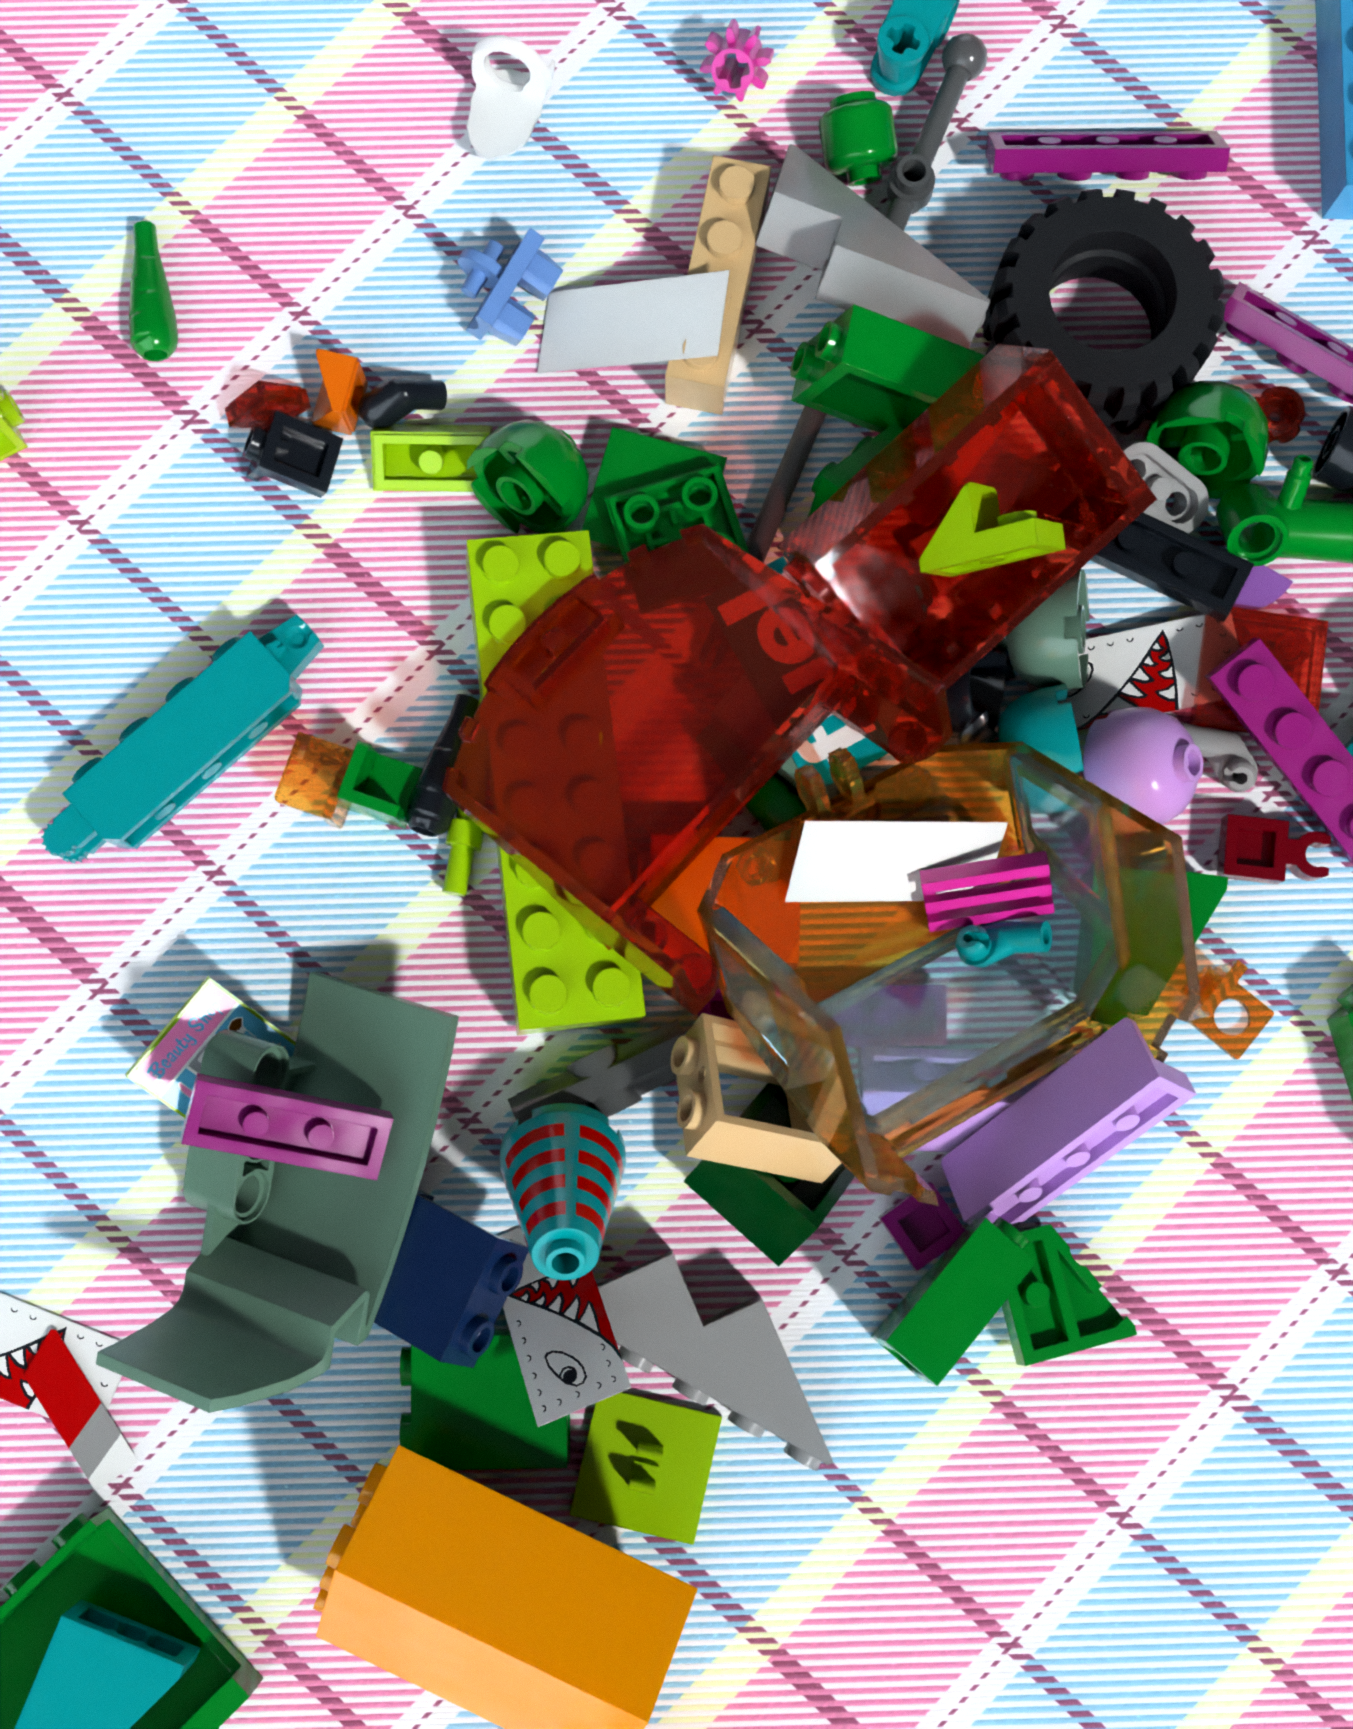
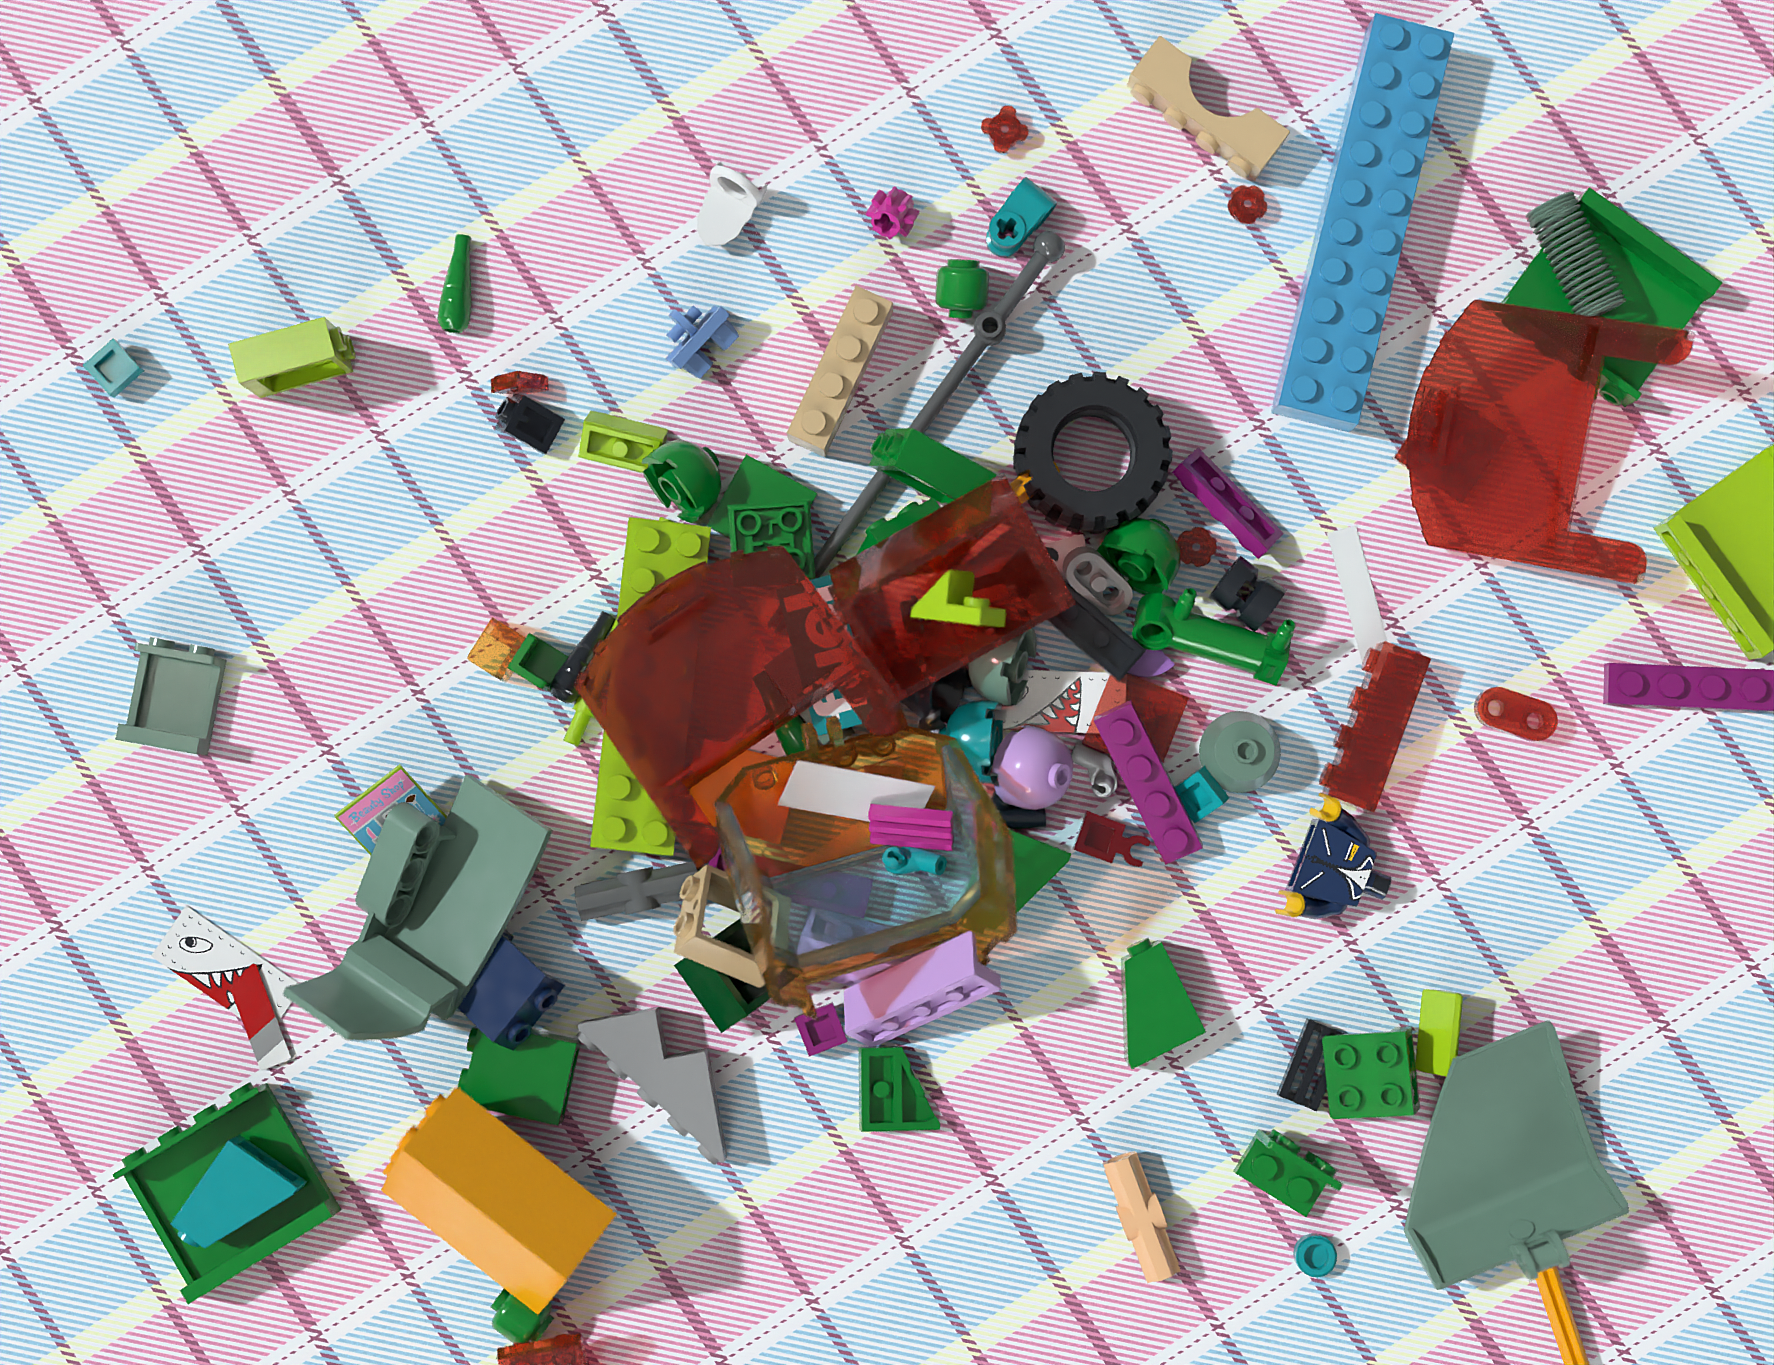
camera: 15 degrees right, 5 degrees up
(185, 743) = (418, 604): teal hinge -> none
(286, 1127) = (429, 875): magenta plate -> none
(339, 392) = (569, 386): orange slope -> none
(399, 397) = (606, 400): black arm -> none
(562, 1341) = (574, 1033): white sticker -> none
(563, 1184) = (595, 950): teal cone -> none
(634, 322) = (775, 387): white sticker -> none
(646, 1466) = (610, 1136): lime piece -> none
(865, 254) = (939, 386): light grey slope -> none
(956, 1299) = (825, 1079): green slope -> none
(1126, 153) = (1129, 336): magenta plate -> none
(1219, 985) = (1042, 925): clear orange bracket -> none

